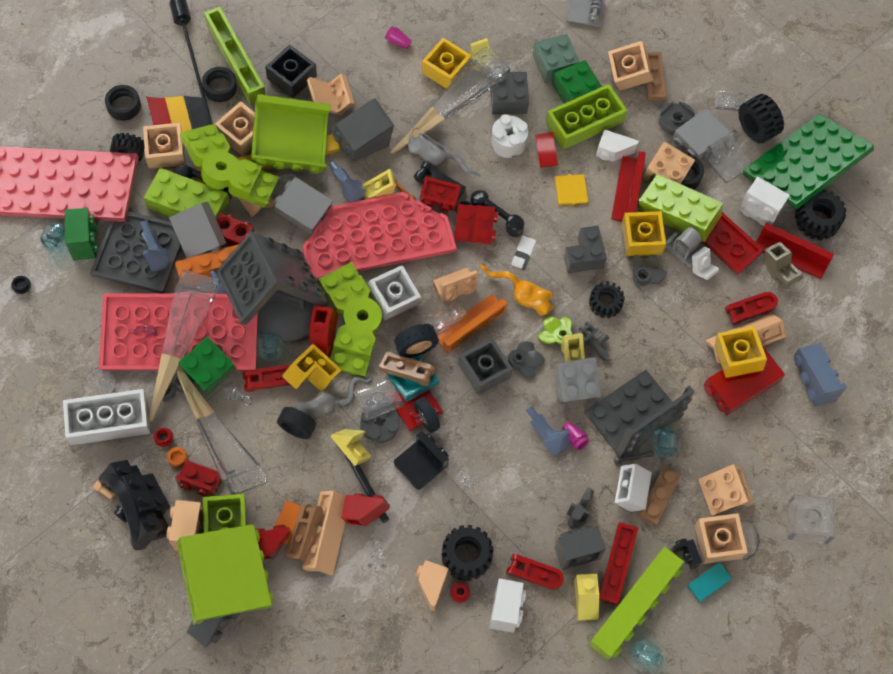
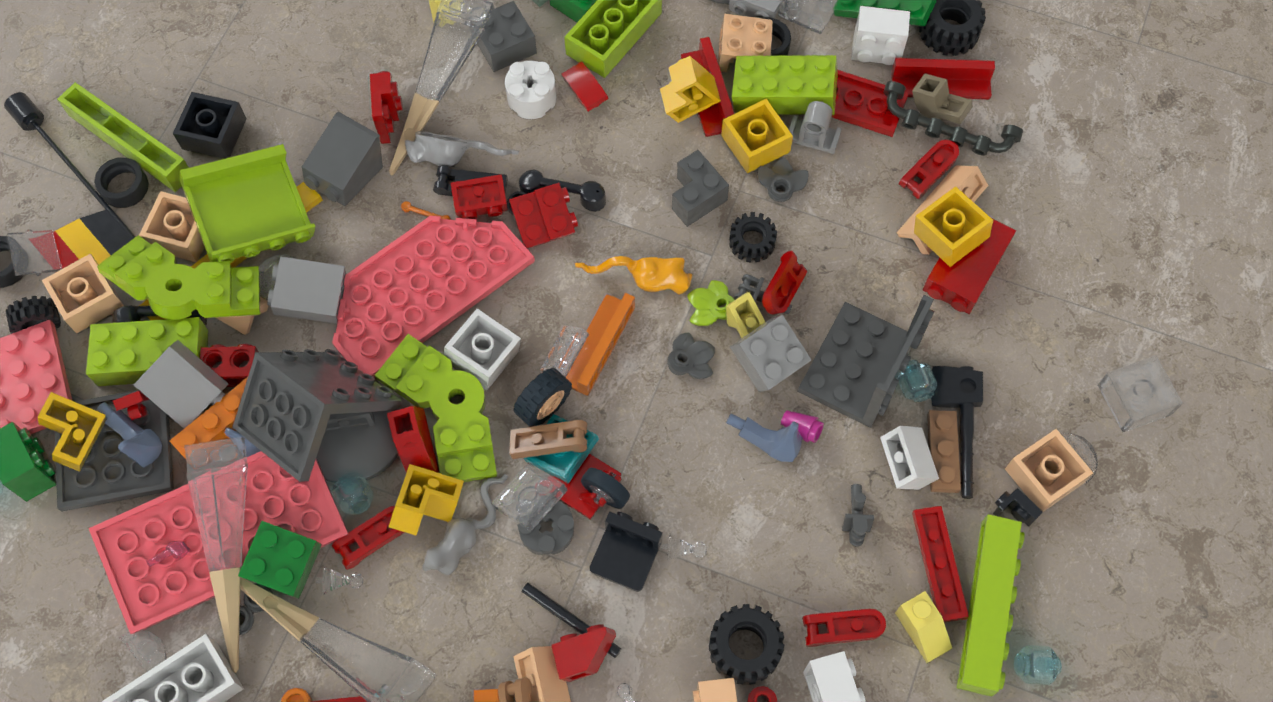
camera: 20 degrees left, 0 degrees up
(124, 227) = (78, 427): none -> yellow brick
(146, 106) = (33, 252): none -> clear piece
(161, 432) = (258, 679): red plate -> none
(164, 228) = (133, 404): none -> red tile
(296, 422) = (438, 579): black tyre -> none
(334, 93) = (282, 127): light nougat bracket -> none
(349, 443) = (521, 574): light yellow slope -> none
(352, 189) = (363, 240): sand blue animal -> none
(380, 185) = (396, 220): light yellow slope -> none
(398, 38) = (328, 27): dark pink cone -> none
(408, 106) = (384, 104): none -> red plate
(445, 62) = (405, 33): yellow brick -> none
(456, 284) = (556, 302): light nougat bracket -> none
(485, 366) = (646, 389): dark grey brick -> none
(523, 252) = (619, 225): white sticker -> none
(571, 189) = (639, 122): yellow piece -> none
(579, 547) = (886, 566): dark grey brick -> none
(610, 339) = (784, 284): none -> red plate
(613, 183) = (689, 91): none -> yellow brick
(615, 146) = (666, 45): white slope -> none
(617, 459) = (869, 431): dark grey hinge -> none
(694, 462) = (962, 390): none -> black piece
(702, 264) = (845, 142): white bracket -> none
(709, 582) = (1061, 532): teal tile -> none
(726, 489) = (1019, 407): light nougat bracket -> none
(781, 292) = (935, 127): none -> pearl dark grey bar
(817, 375) = (1053, 214): sand blue wedge -> none

